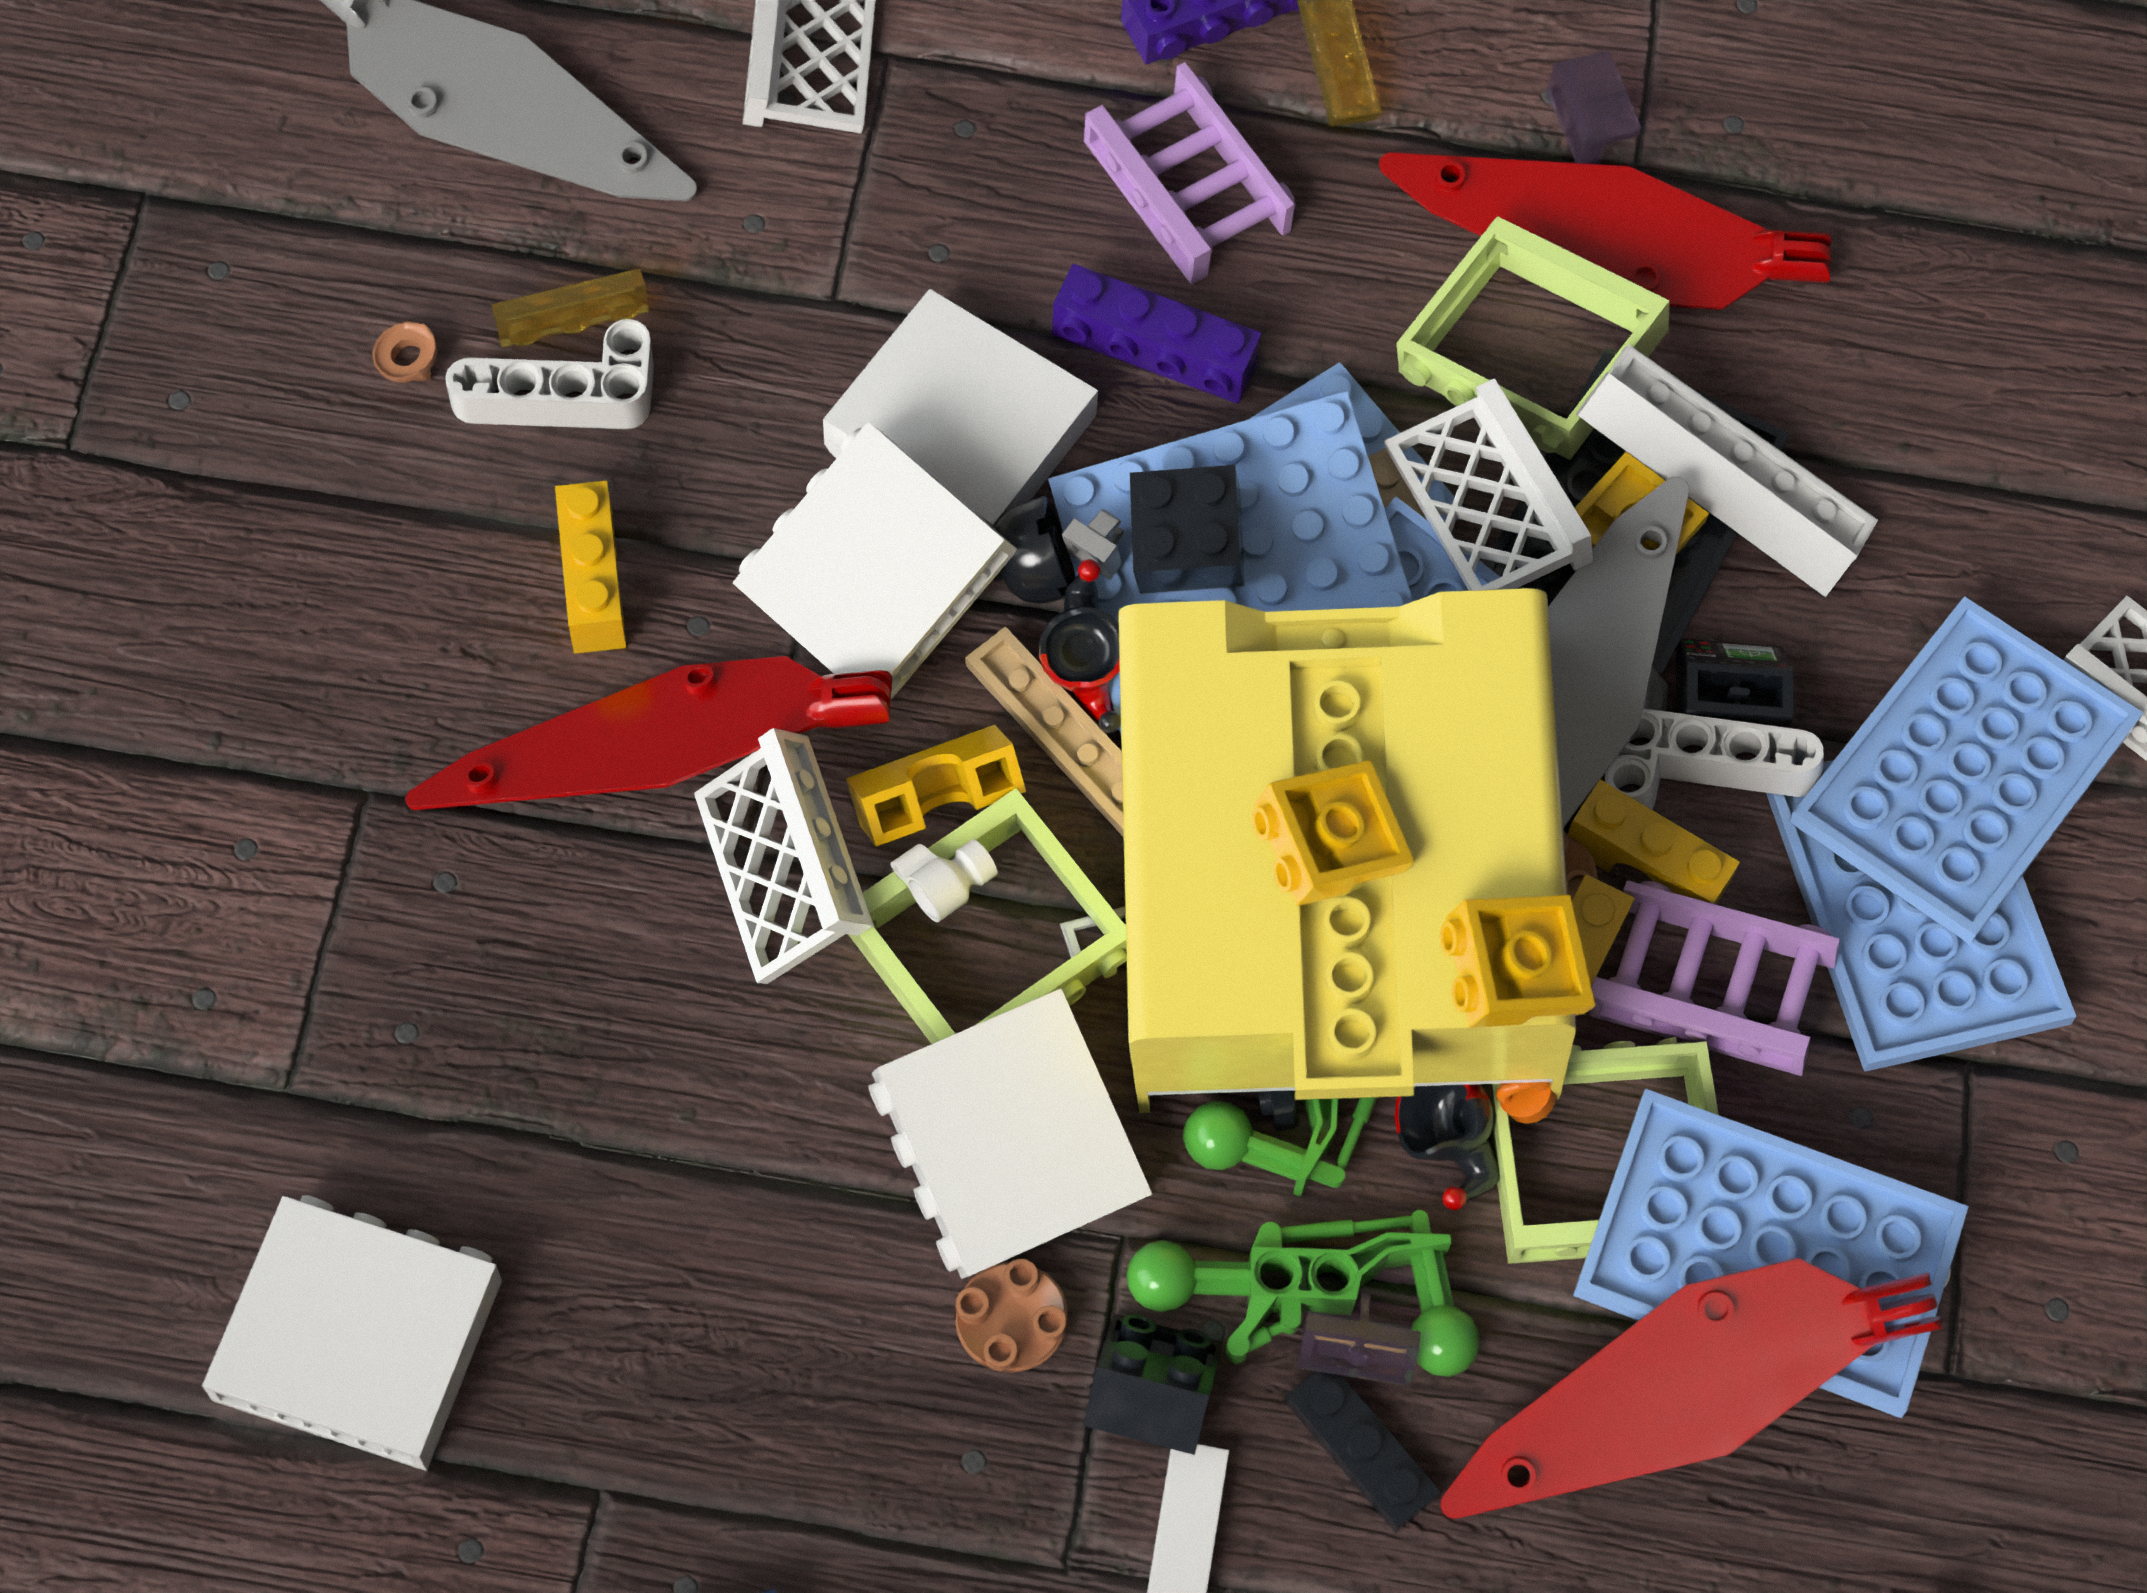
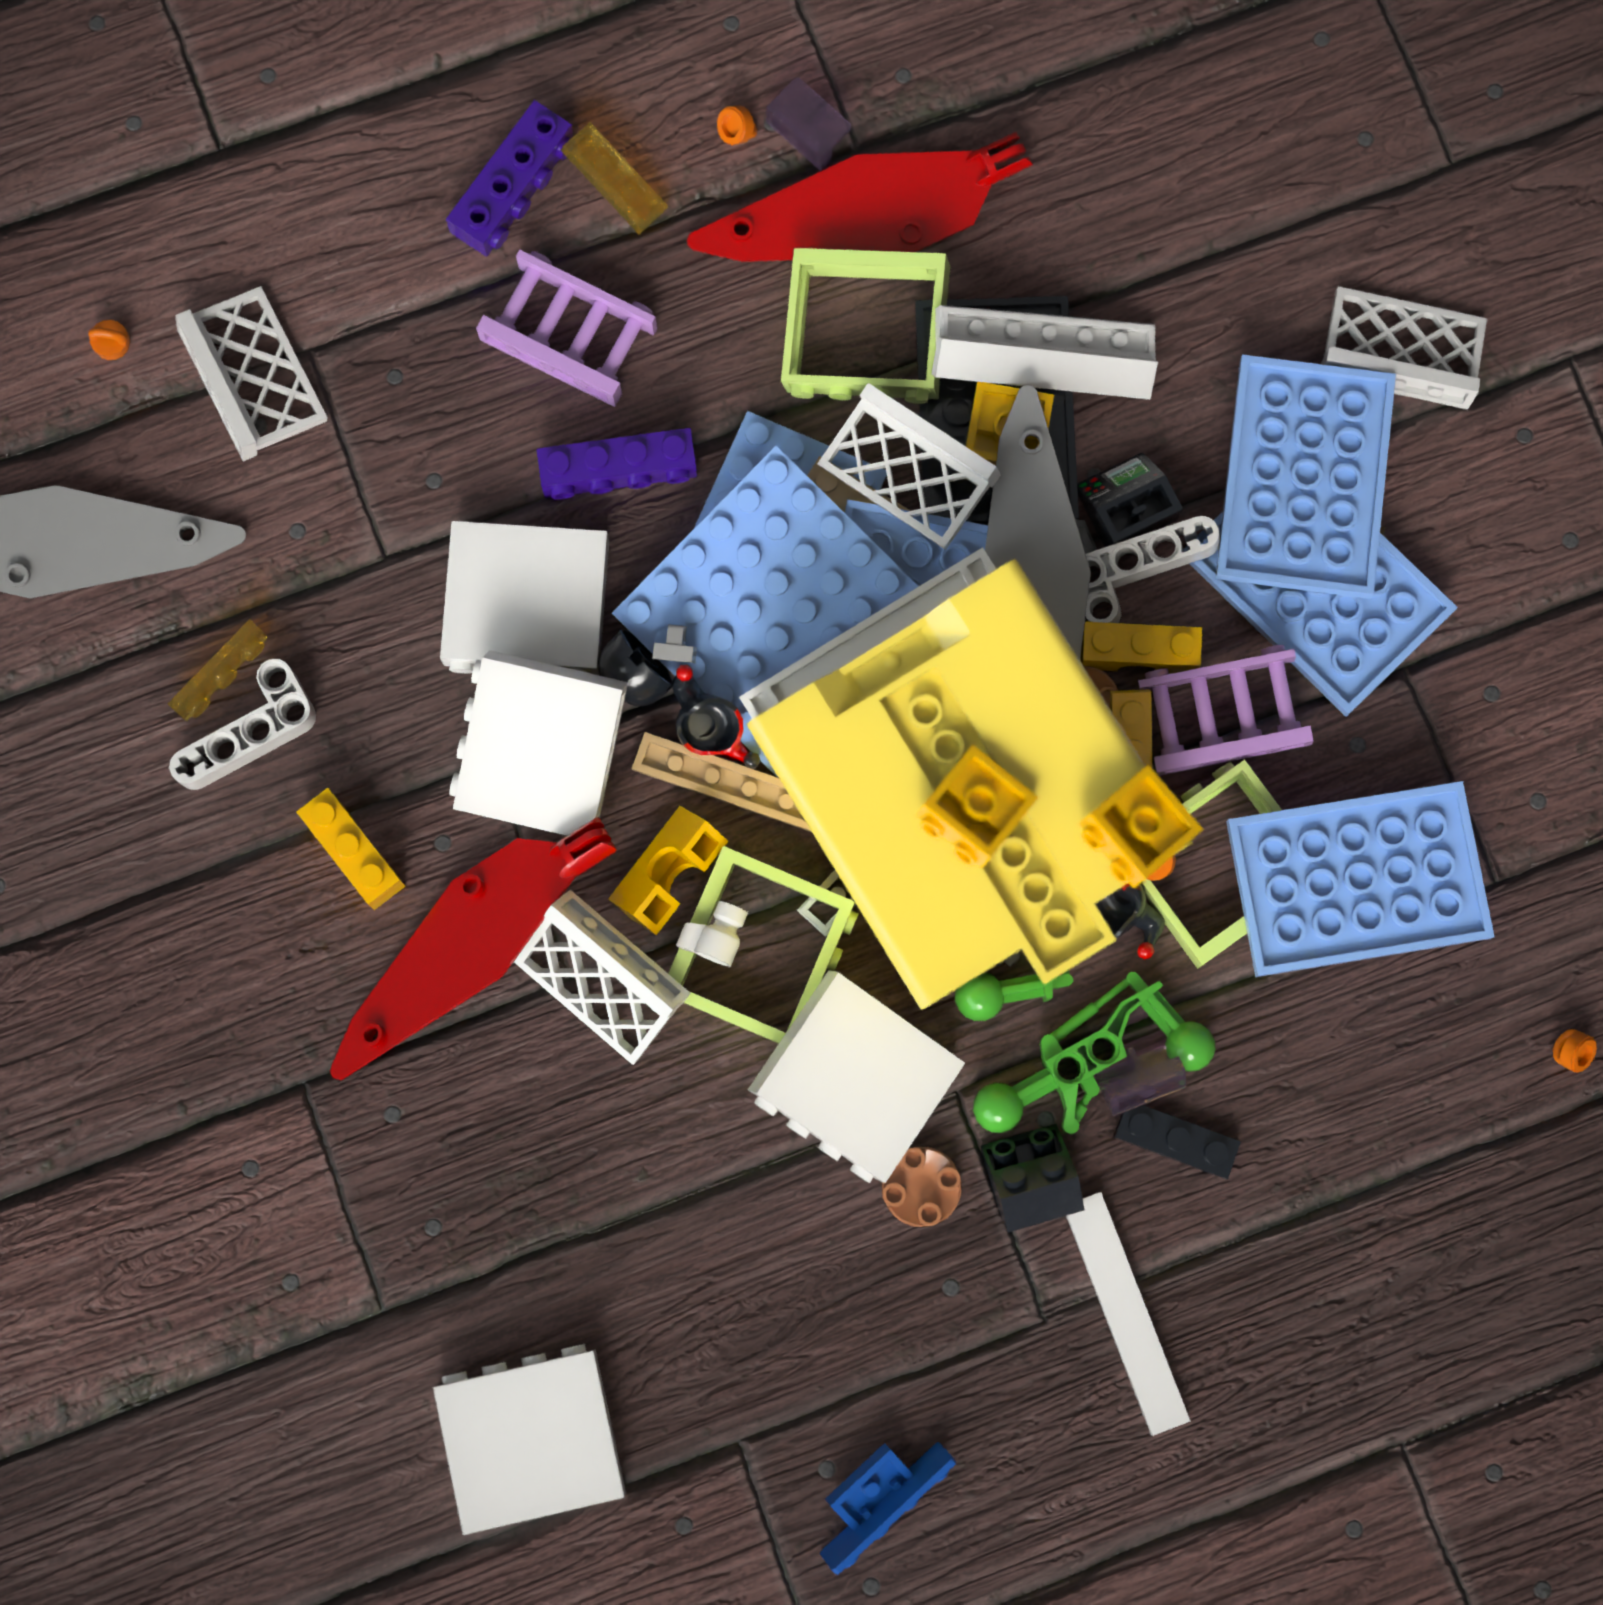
camera: 30 degrees left, 15 degrees up
(395, 340) = (112, 765): nougat piece -> none
(1186, 529) = (730, 606): black brick -> none
(1510, 71) = (736, 125): none -> orange tile
(1688, 1381) = (1357, 990): red wing -> none

